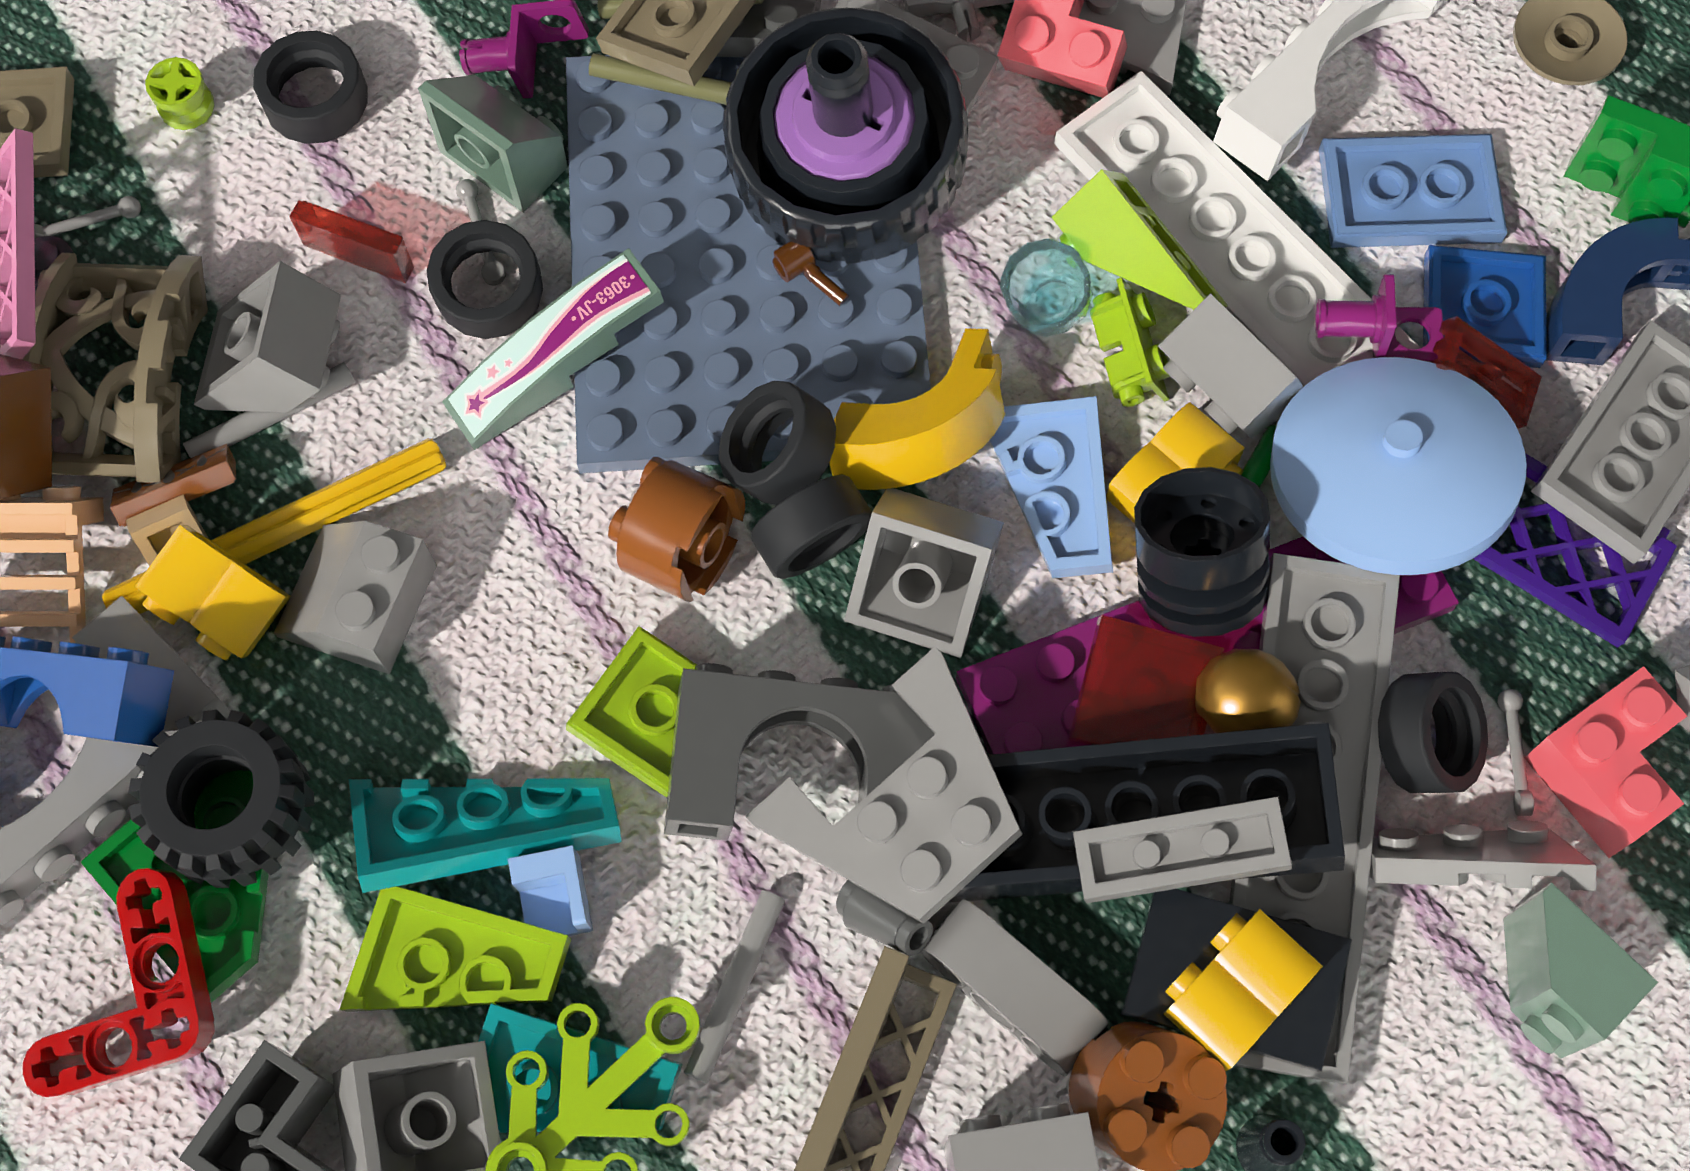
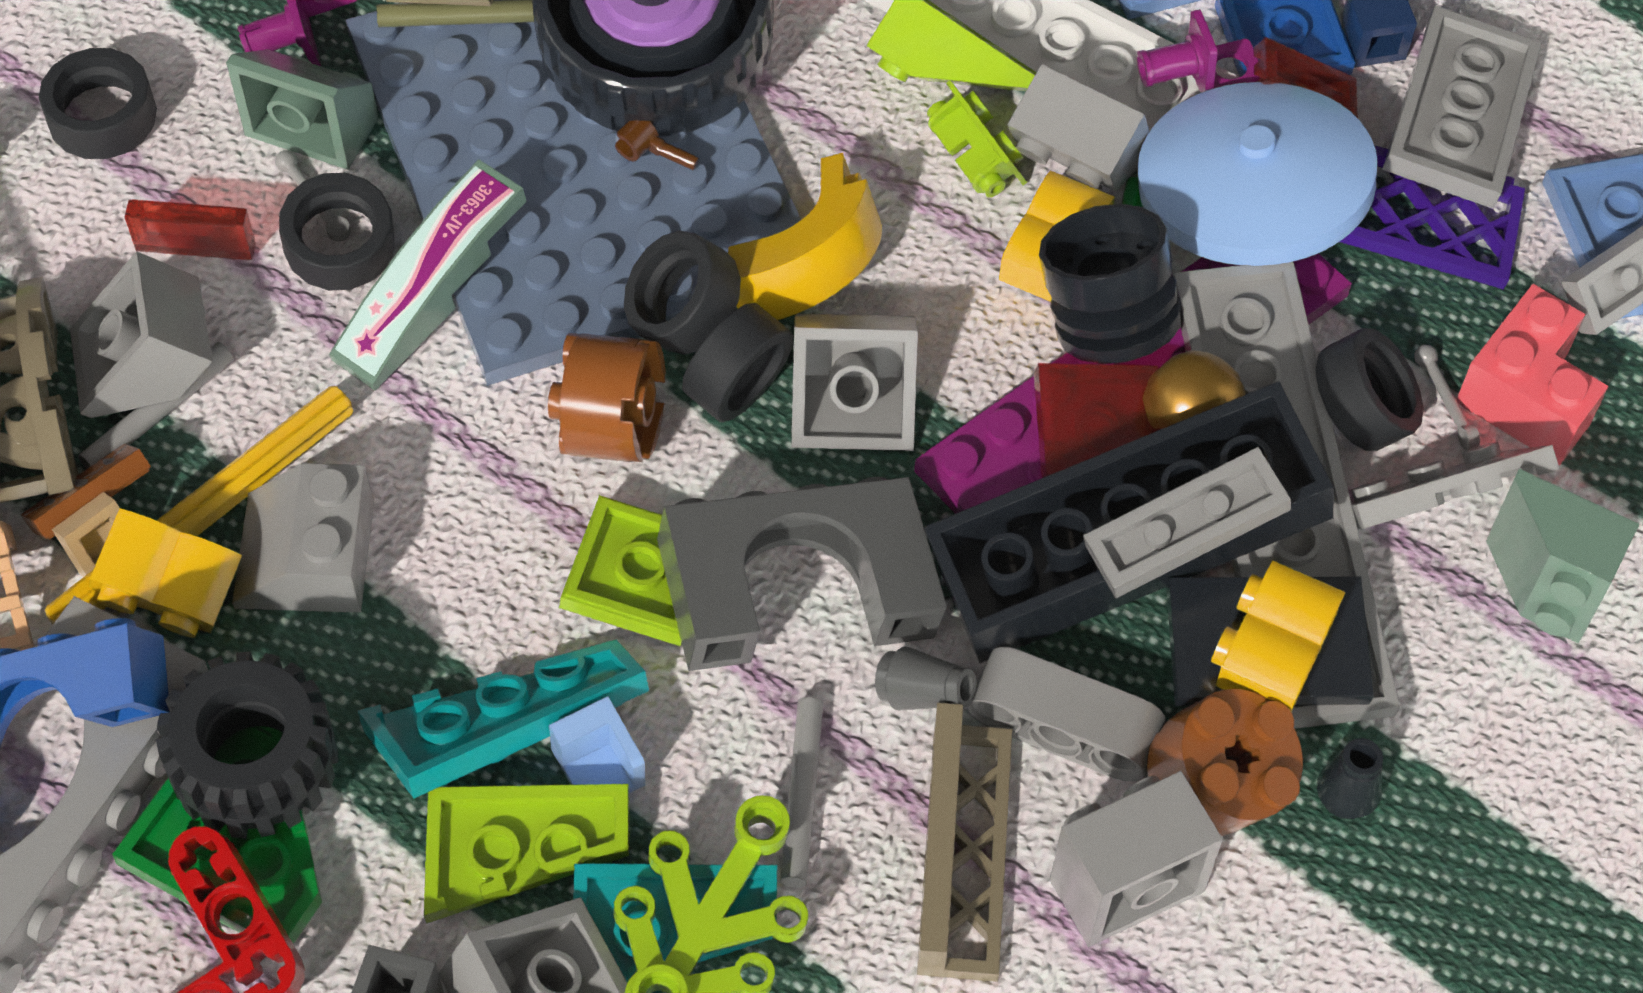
camera: 20 degrees left, 10 degrees down
(924, 824) = (939, 580): light grey wing -> none
(1046, 287) = (882, 107): clear light blue hair -> none
(1059, 481) = (952, 273): light blue wing -> none

